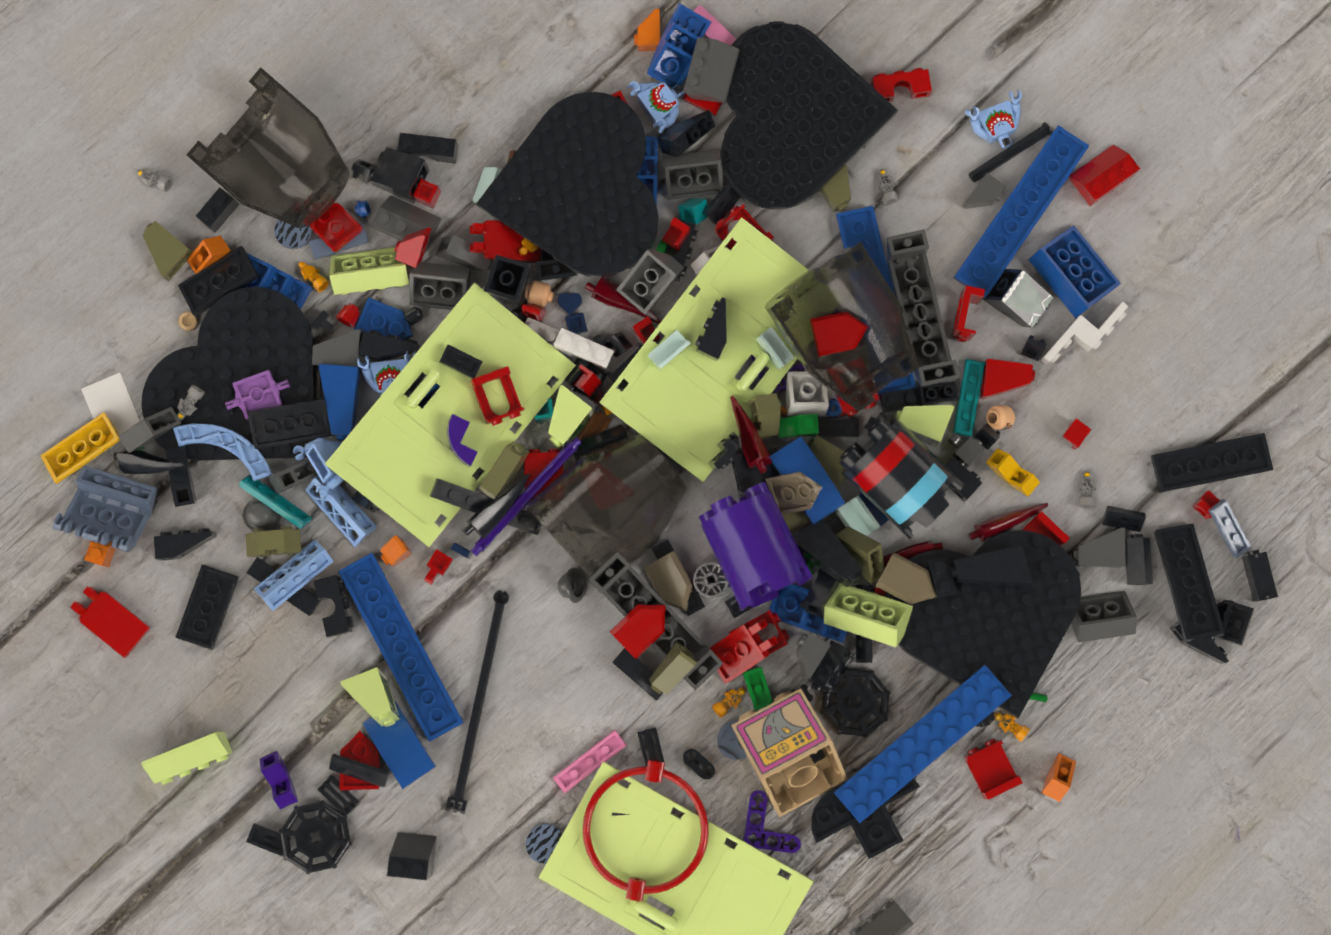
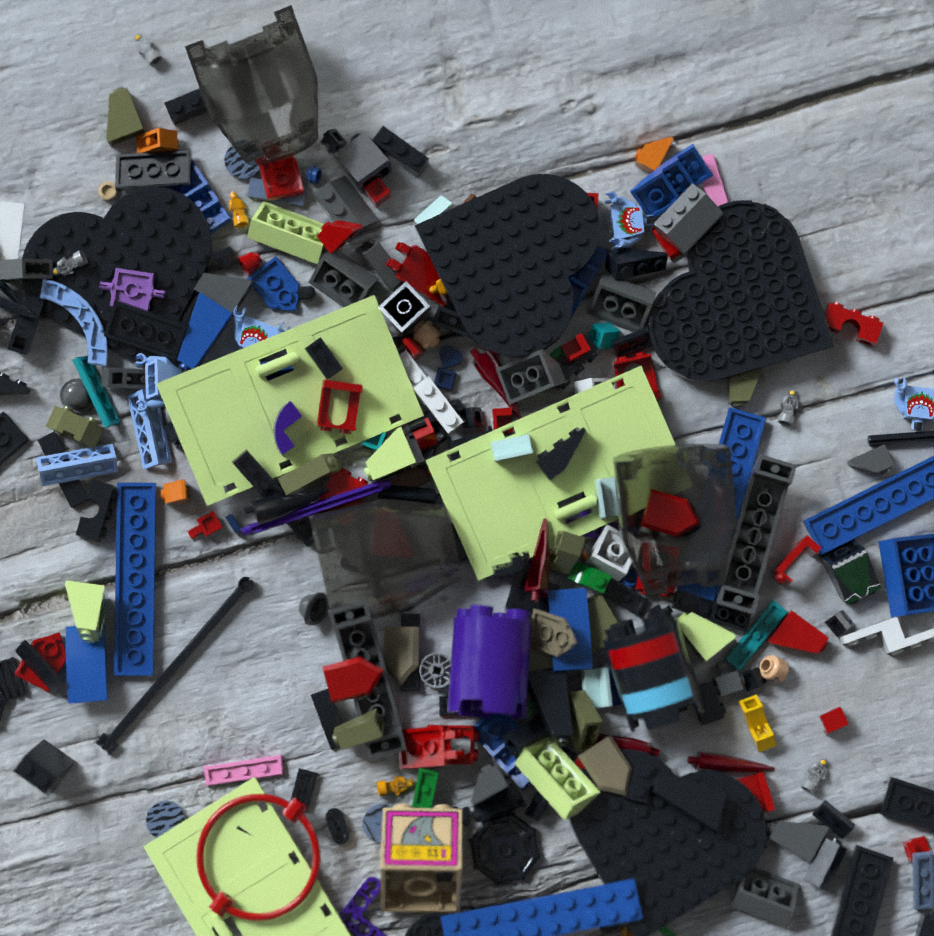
camera: 25 degrees right, 0 degrees up
(383, 348) = (263, 308): black slope -> none

